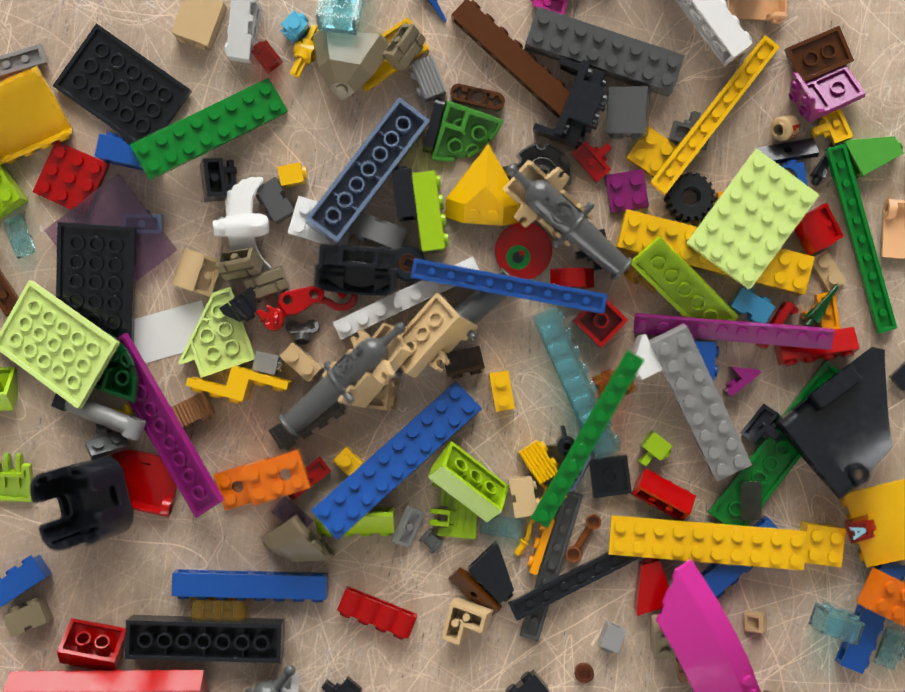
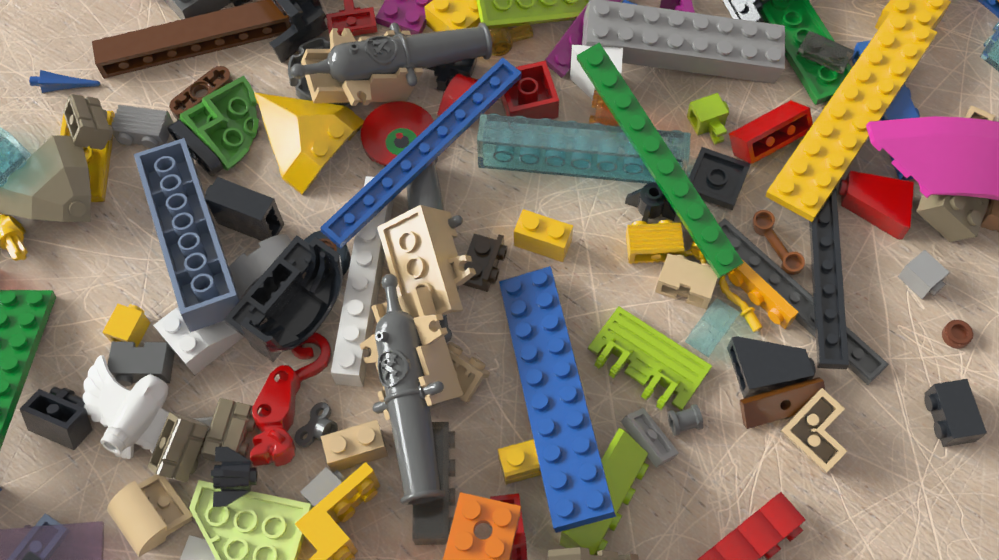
camera: 60 degrees left, 25 degrees down
(428, 212) = (299, 201): lime brick -> none
(469, 482) = (634, 327): lime slope -> none

